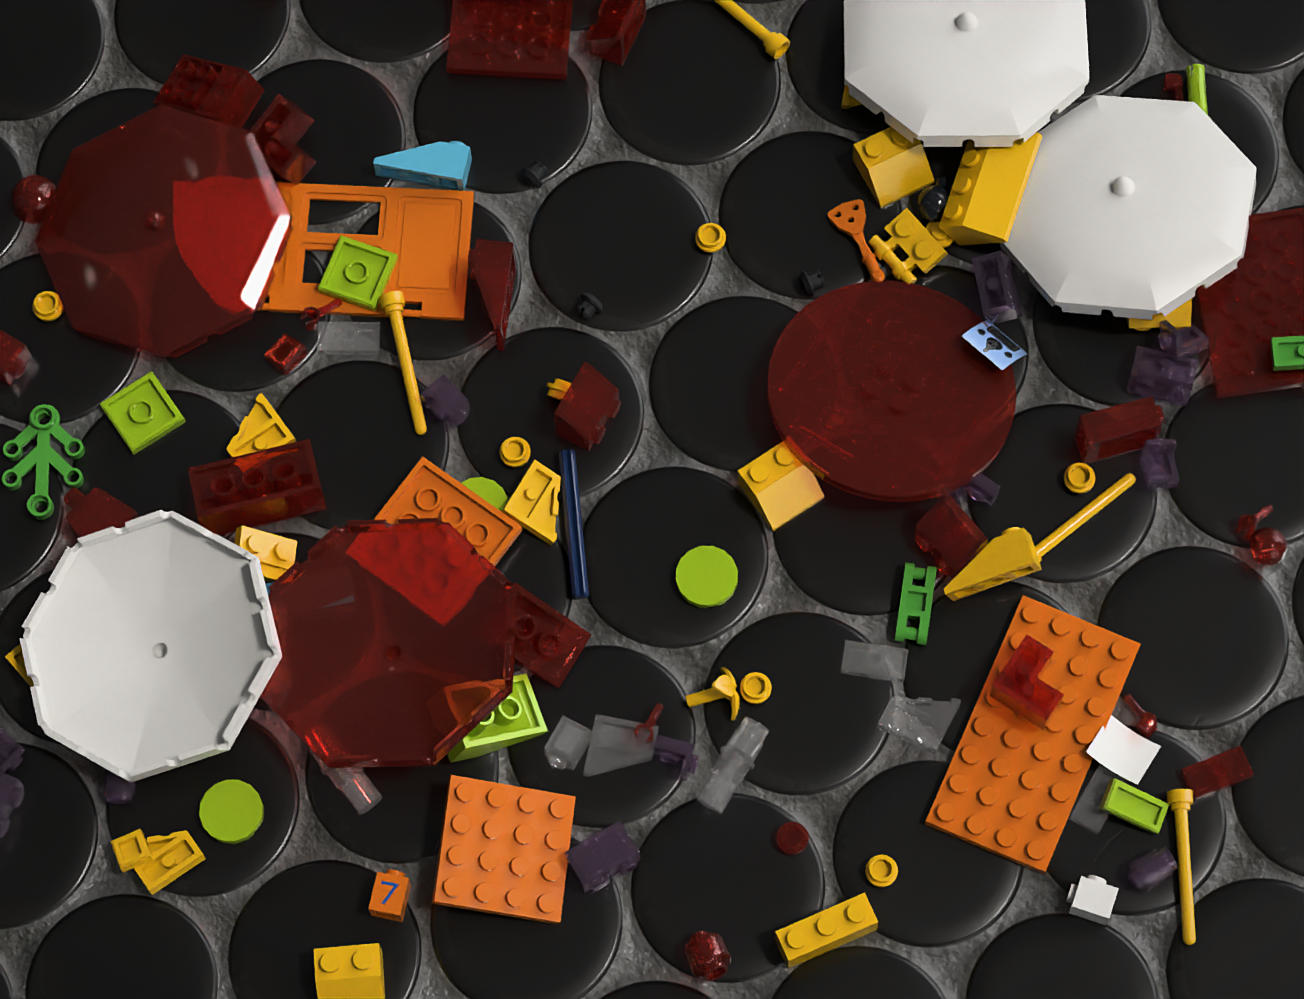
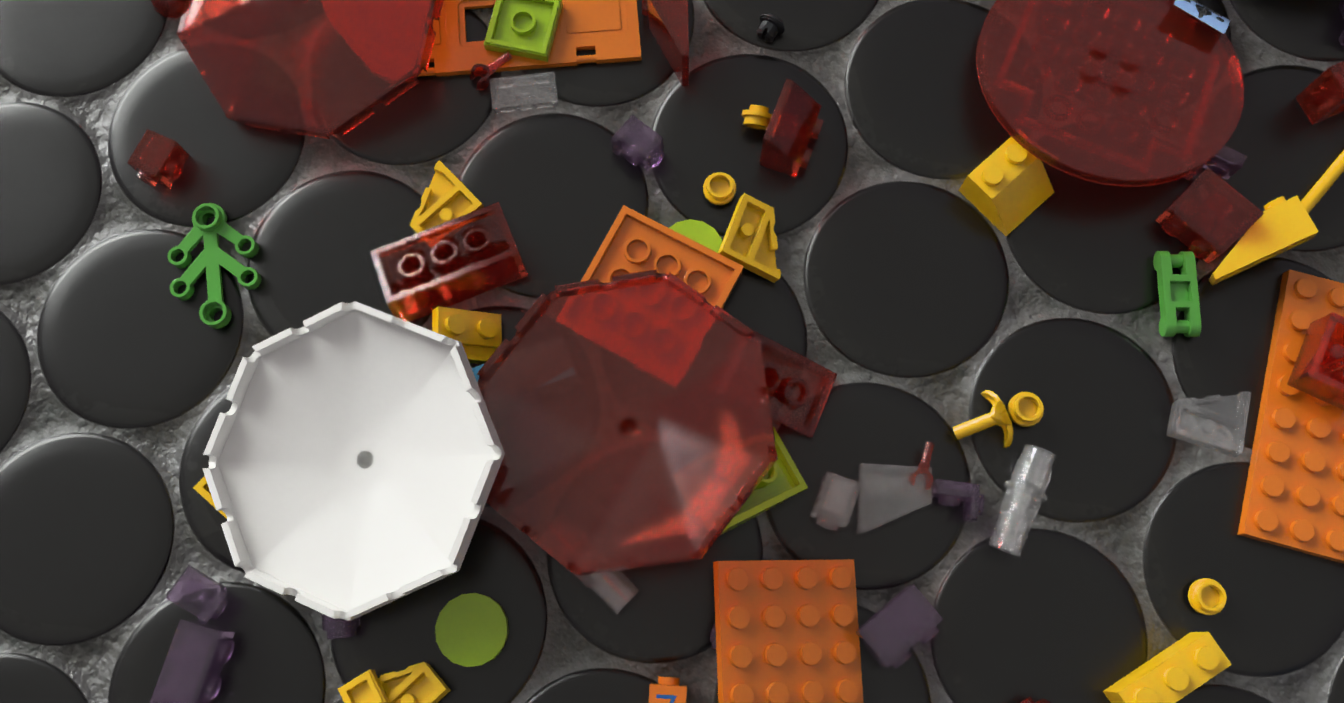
camera: 10 degrees left, 5 degrees up
(47, 306) = (198, 99): yellow plate -> none
(96, 511) = (274, 311): clear red torso -> none
(142, 412) = (315, 199): lime tile -> none
(286, 353) = (460, 116): clear red slope -> none
(393, 306) = (565, 50): yellow piece -> none
(573, 524) = (796, 257): dark blue axle -> none
(706, 576) = (948, 294): lime tile -> none
(792, 838) = (1101, 572): clear red plate -> none
(874, 661) = (1146, 361): clear plate -> none
(1079, 478) = (1316, 138): yellow plate -> none

